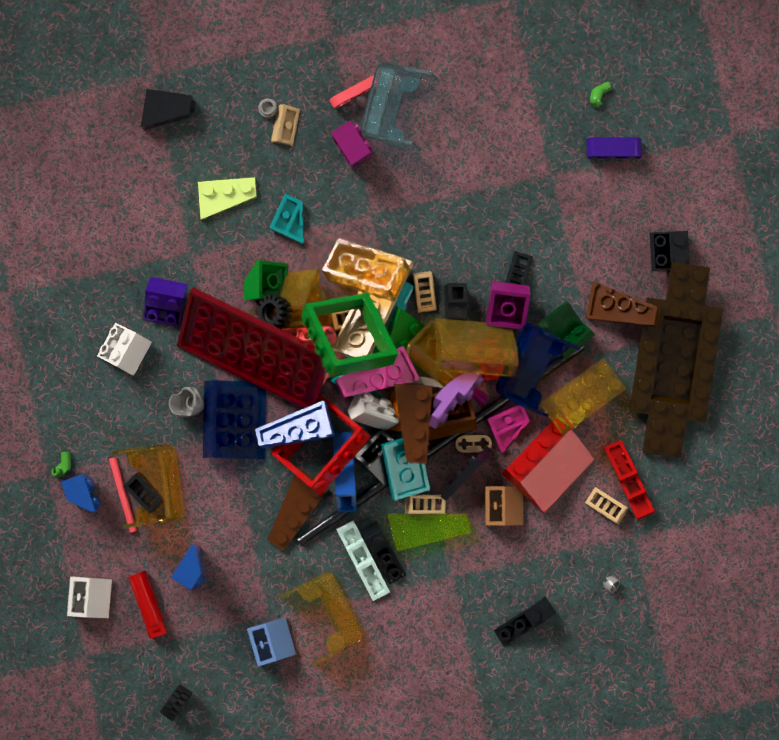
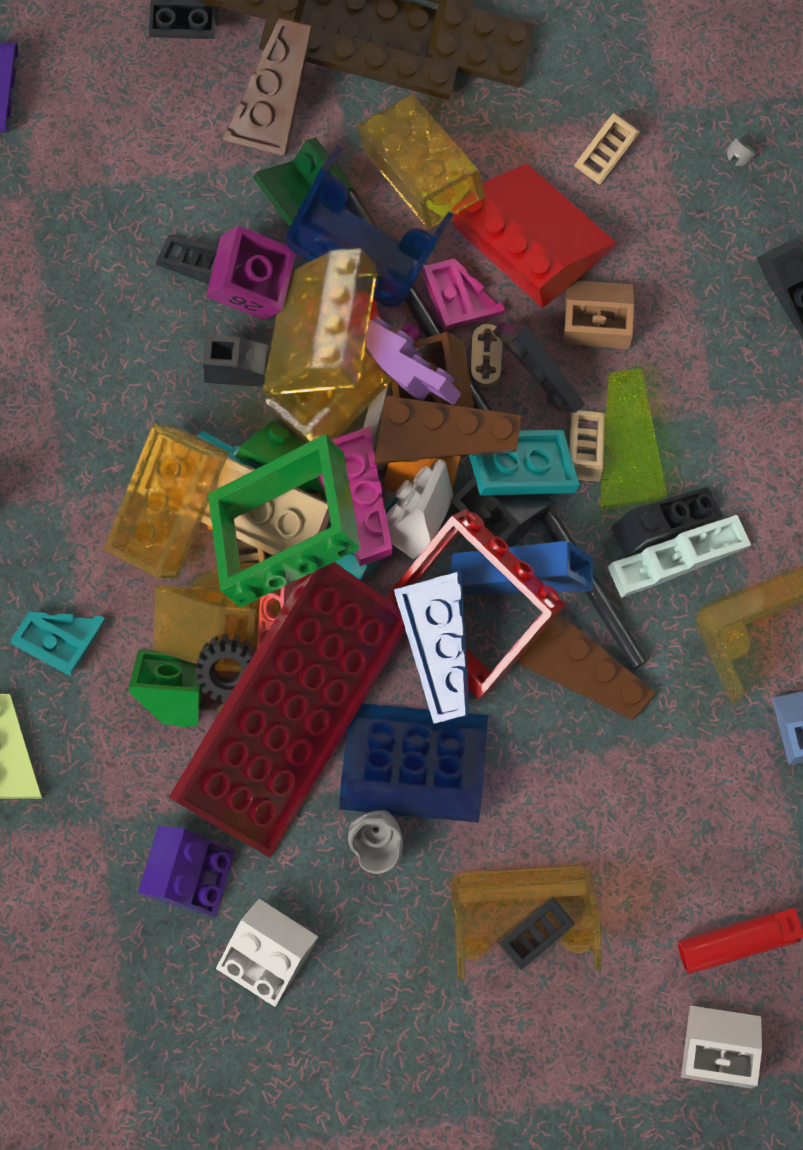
camera: 85 degrees left, 10 degrees down
(64, 467) = (476, 1081): bright green arm -> none
(80, 492) = (527, 1048): blue slope -> none
(122, 493) = (531, 976): coral bar -> none
(191, 569) = (682, 847): blue slope -> none
(421, 275) = (211, 404): tan slope -> none
(629, 480) = (565, 110): red slope -> none

